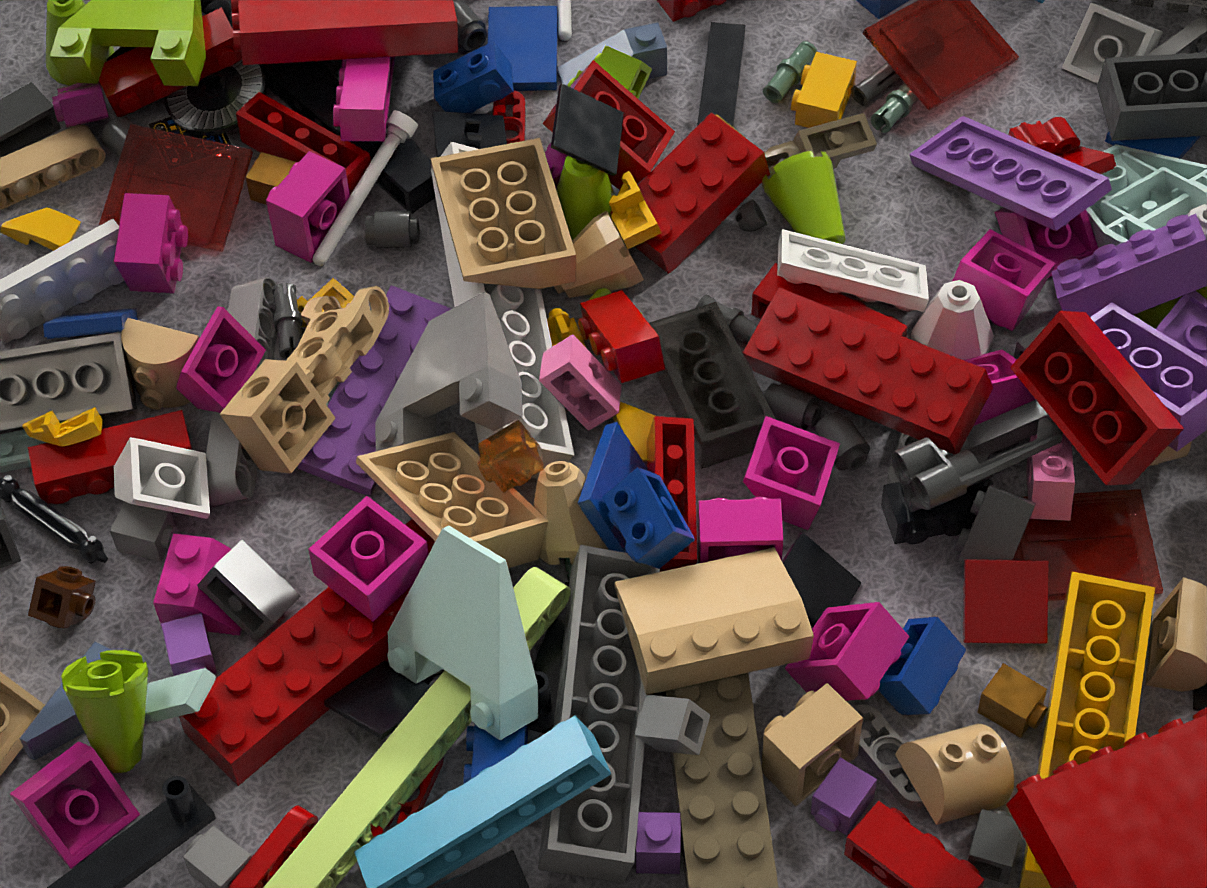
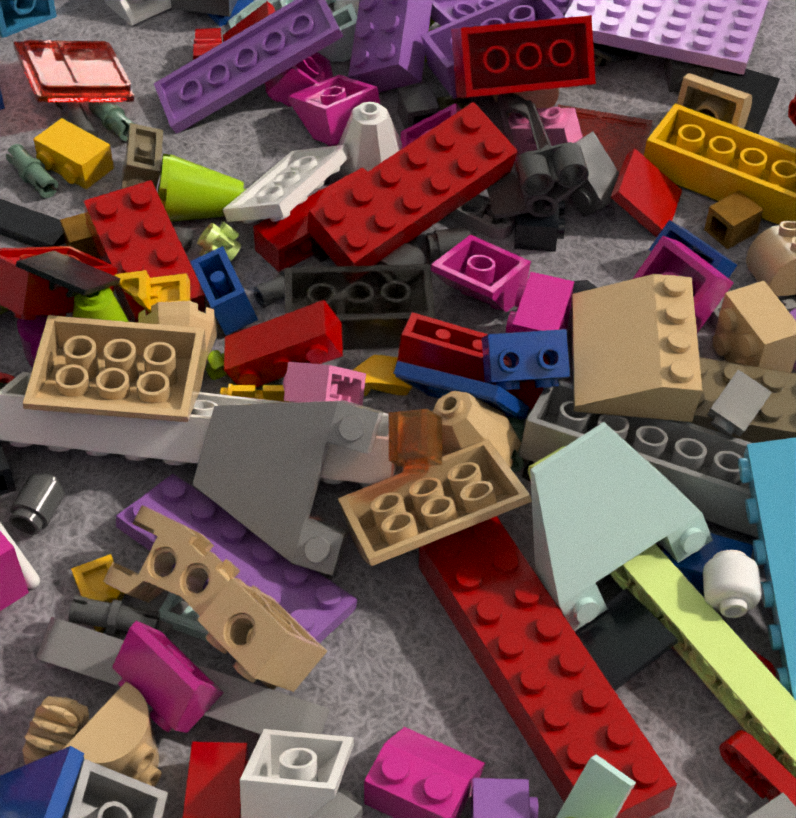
camera: 75 degrees left, 5 degrees down
(170, 313) = (53, 727): none -> tan gear
(248, 590) = (460, 725): brick -> none
(369, 558) = (494, 581): dark pink brick -> none
(448, 762) = (731, 583): none -> white head
(683, 270) = (224, 290): none -> blue brick
(751, 247) = (215, 237): none -> yellowish green gear

